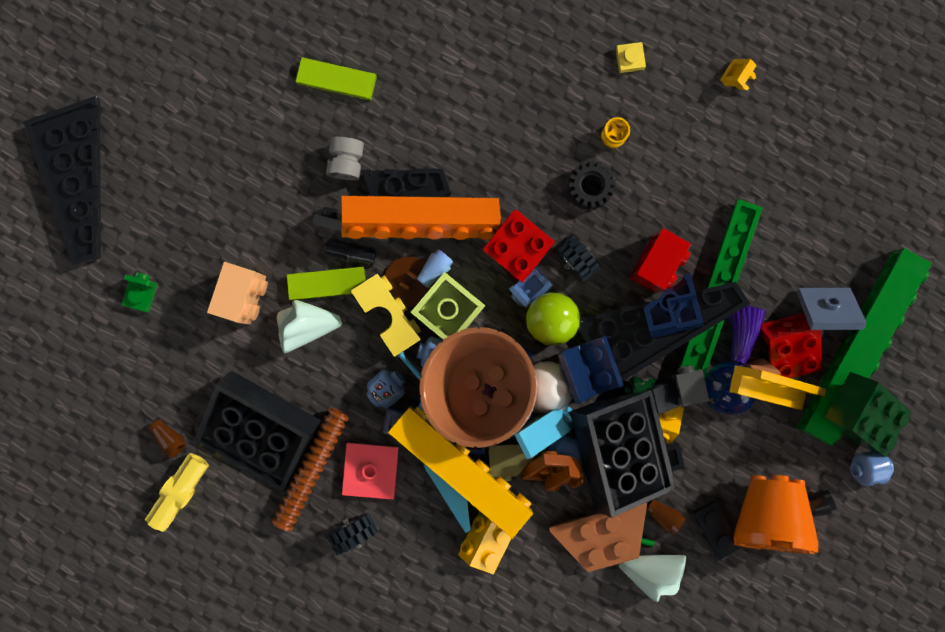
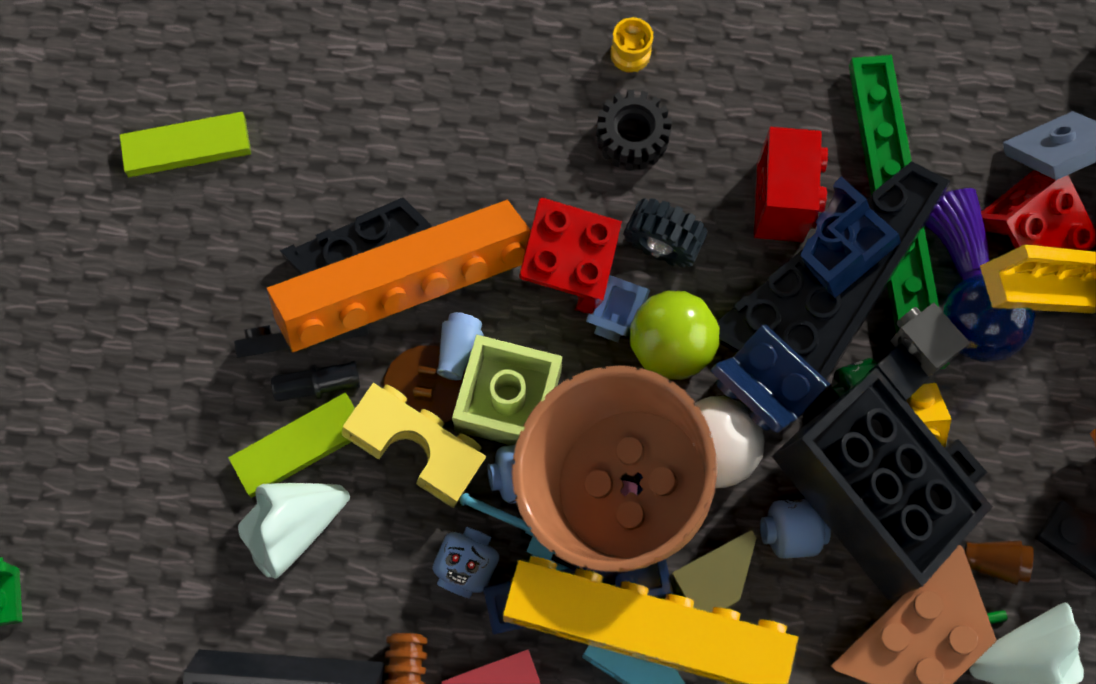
camera: 25 degrees left, 15 degrees down
(237, 294) = (161, 515): light nougat brick -> none
(345, 158) = (247, 240): light grey wheel -> none
(543, 431) = (749, 499): medium azure slope -> none
(554, 470) = (794, 563): dark orange slope -> none

